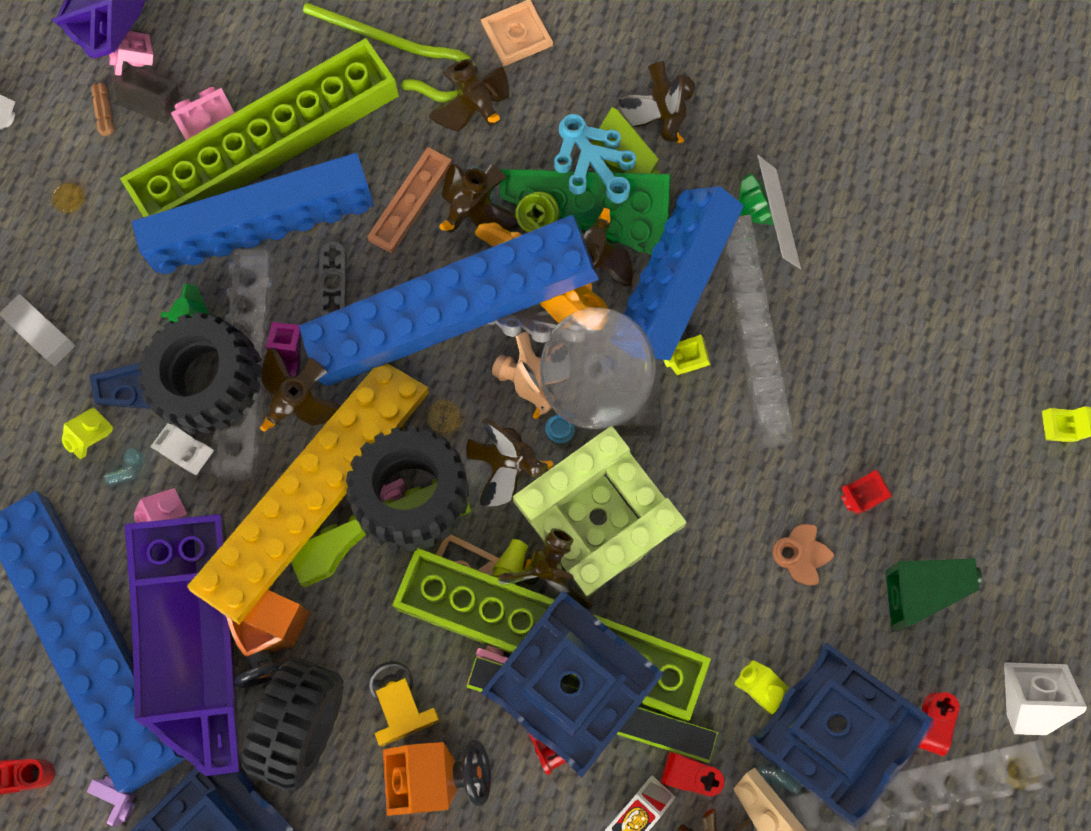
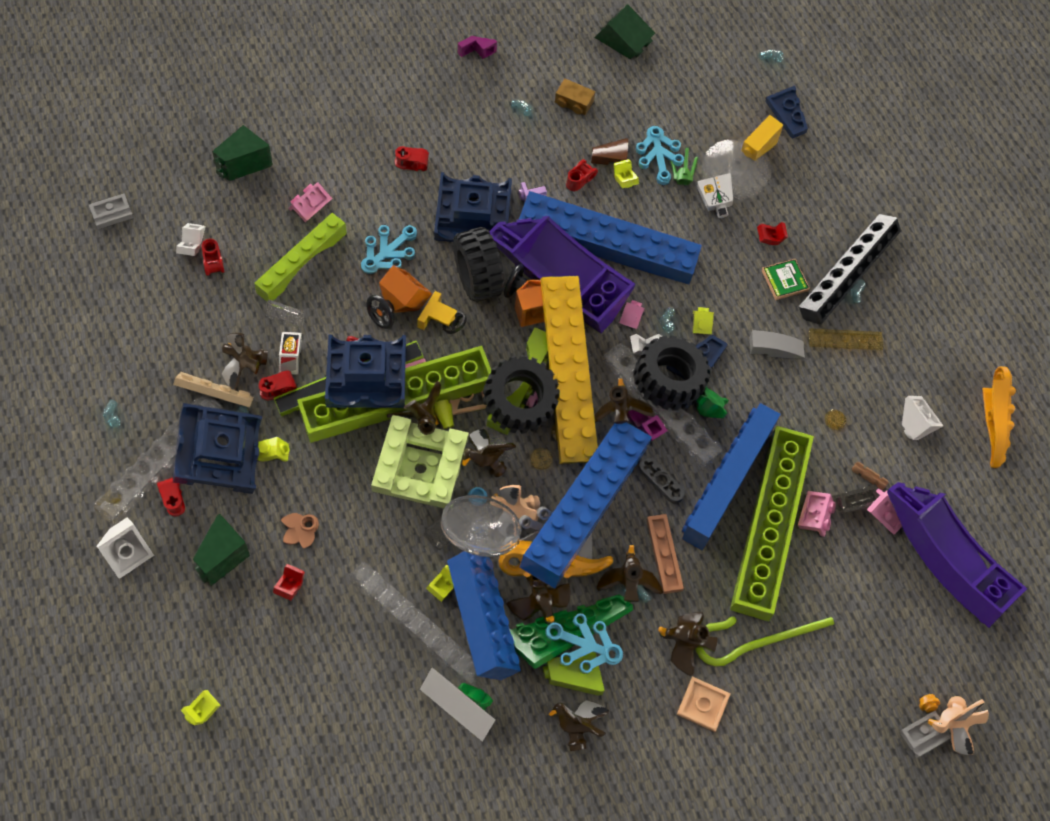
camera: 130 degrees right, 10 degrees down
(543, 202) = (590, 597): lime wheel -> none

